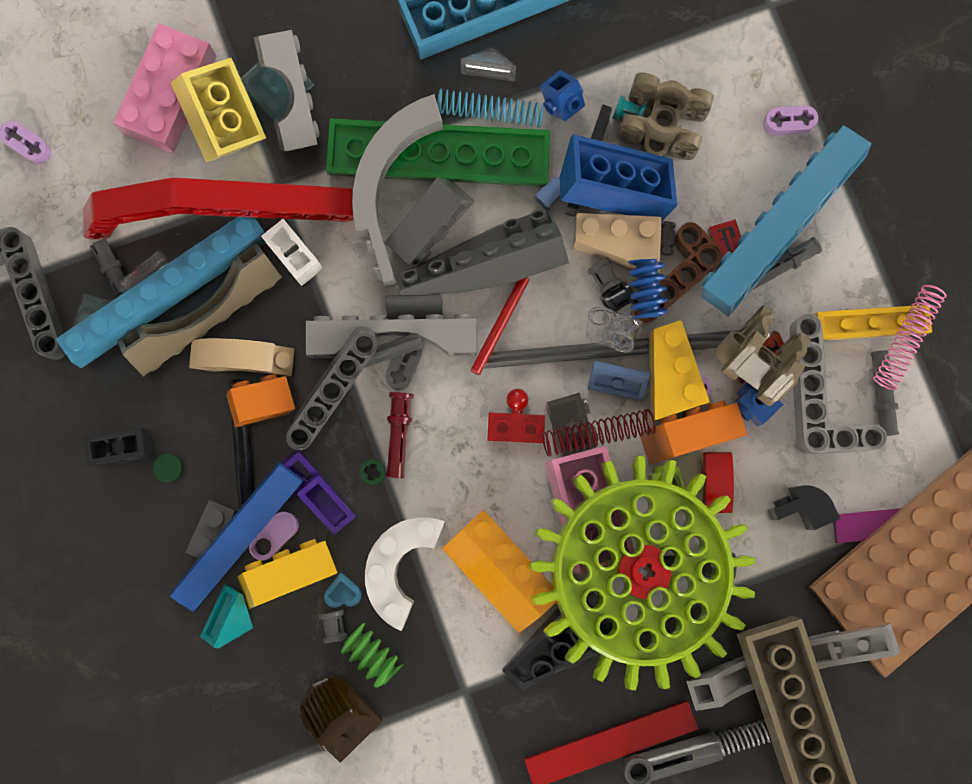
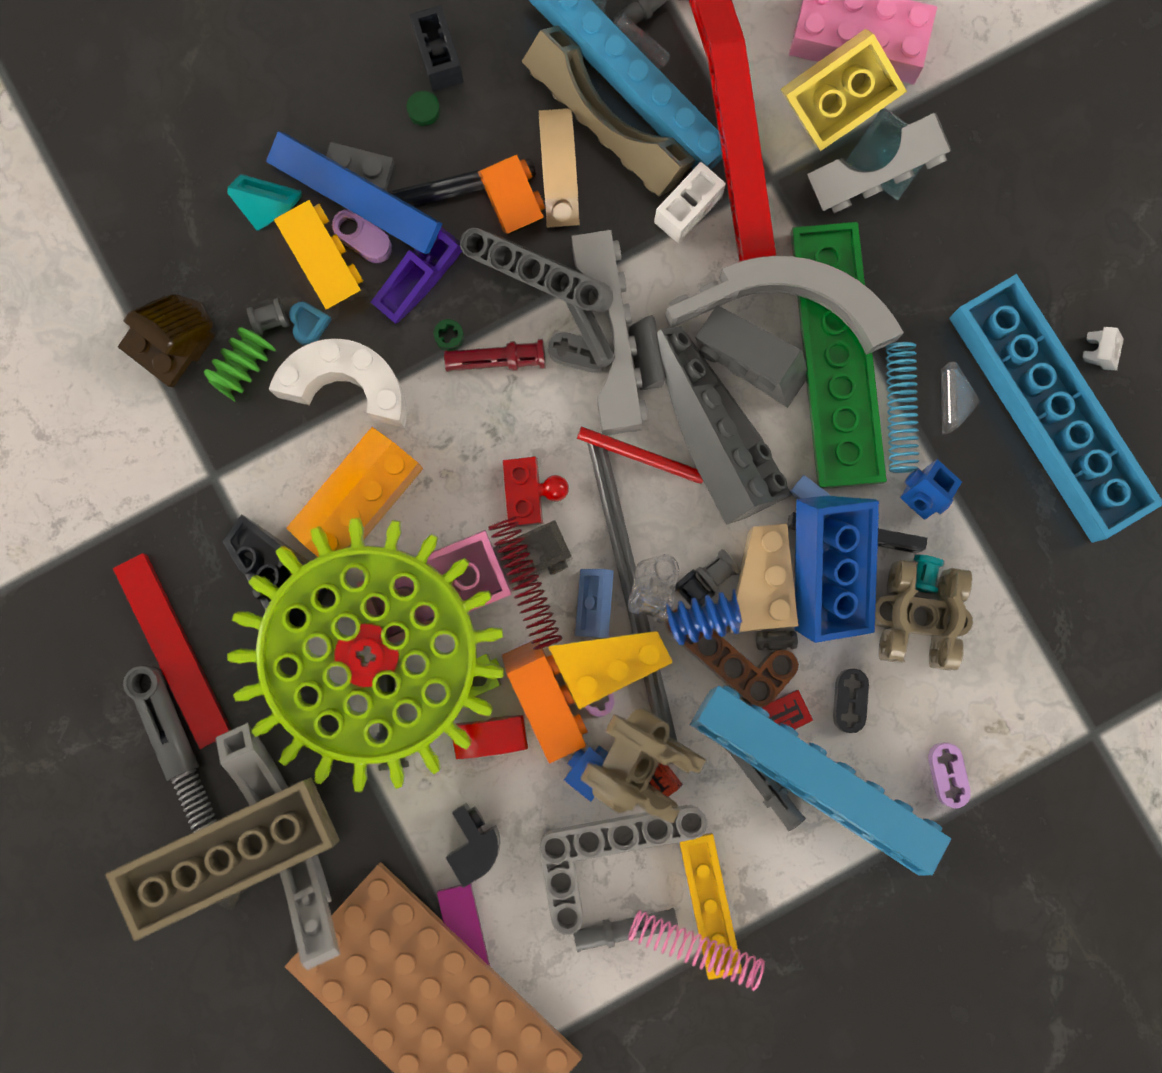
camera: 85 degrees right, 0 degrees up
(724, 181) = (859, 700): none -> black beam

